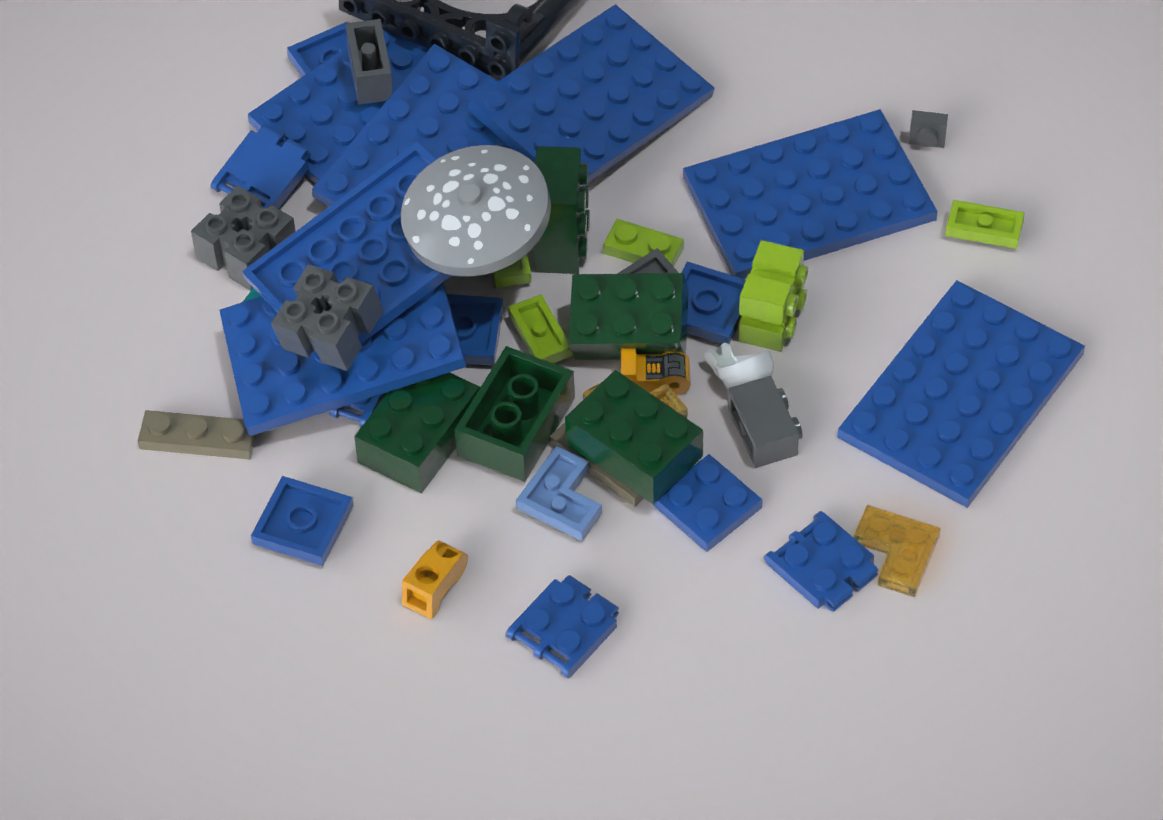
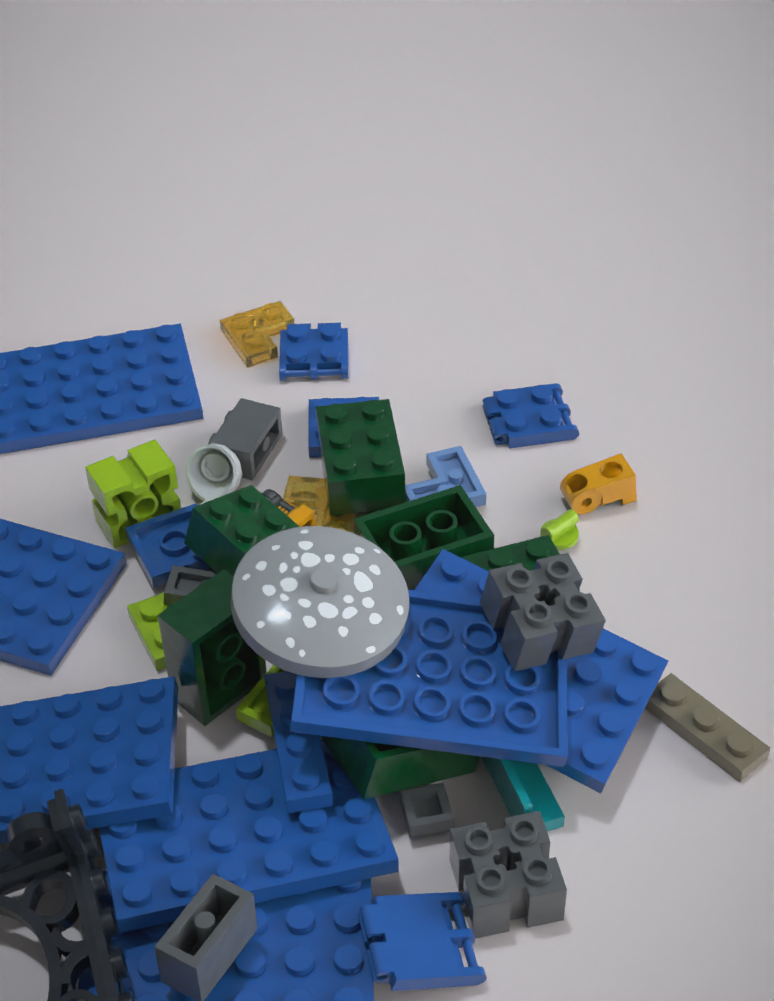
camera: 140 degrees left, 10 degrees down
(302, 520) = (670, 589): blue plate -> none
(432, 515) = (562, 530): none -> lime plate

